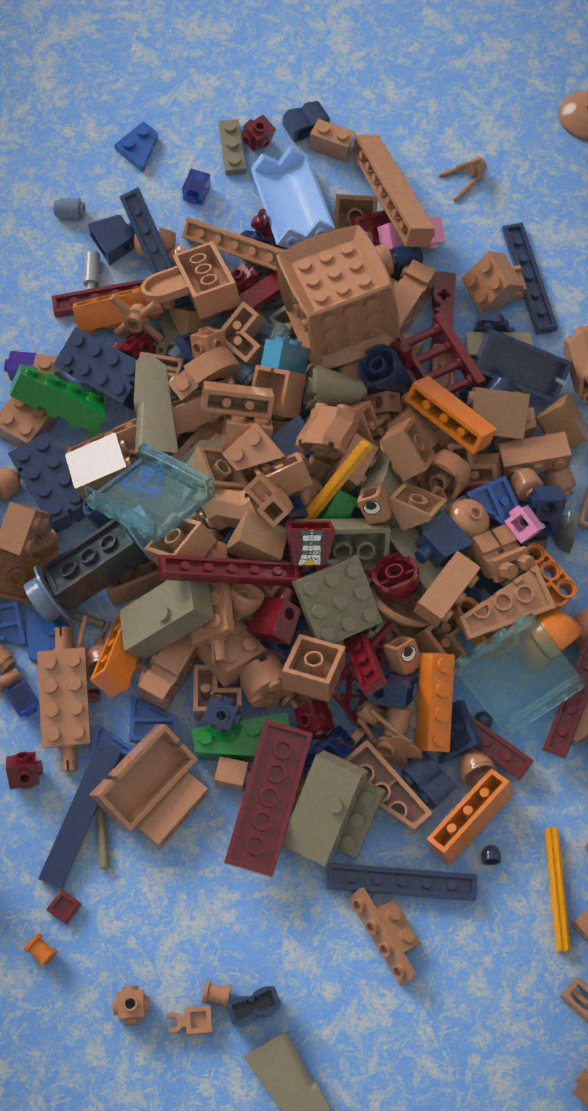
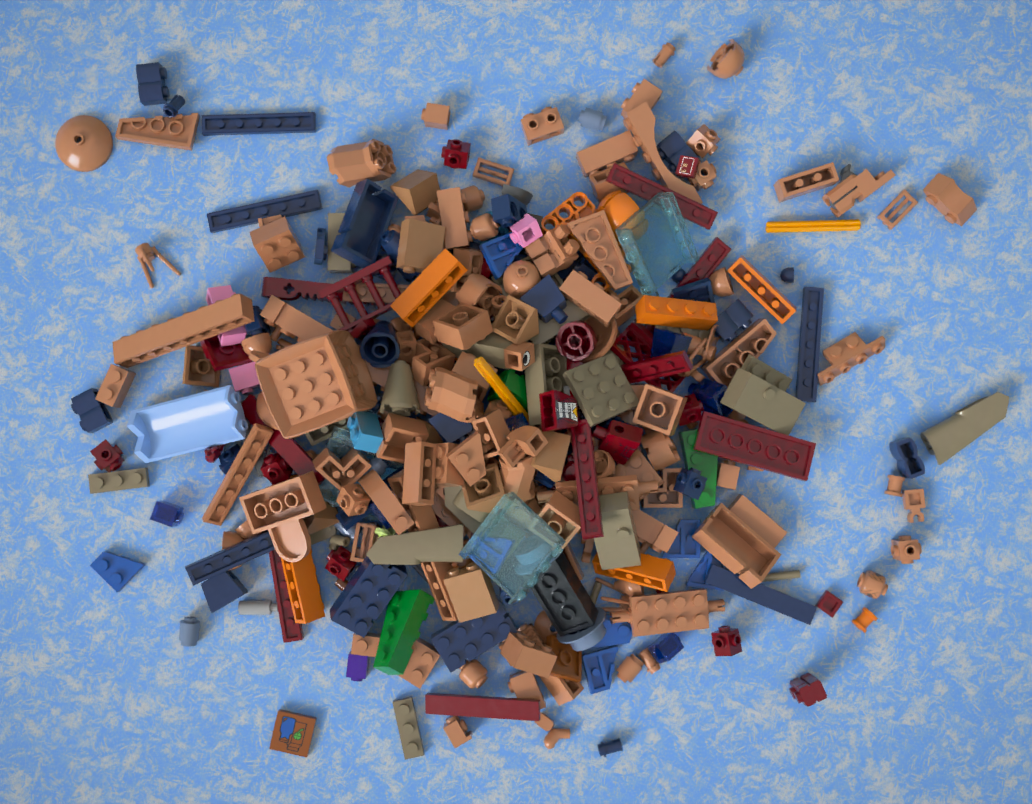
camera: 85 degrees left, 20 degrees up
(86, 961) = (872, 584): none -> nougat head
(136, 318) = (317, 565): nougat bar -> none
(402, 655) = (636, 337): nougat brick -> none

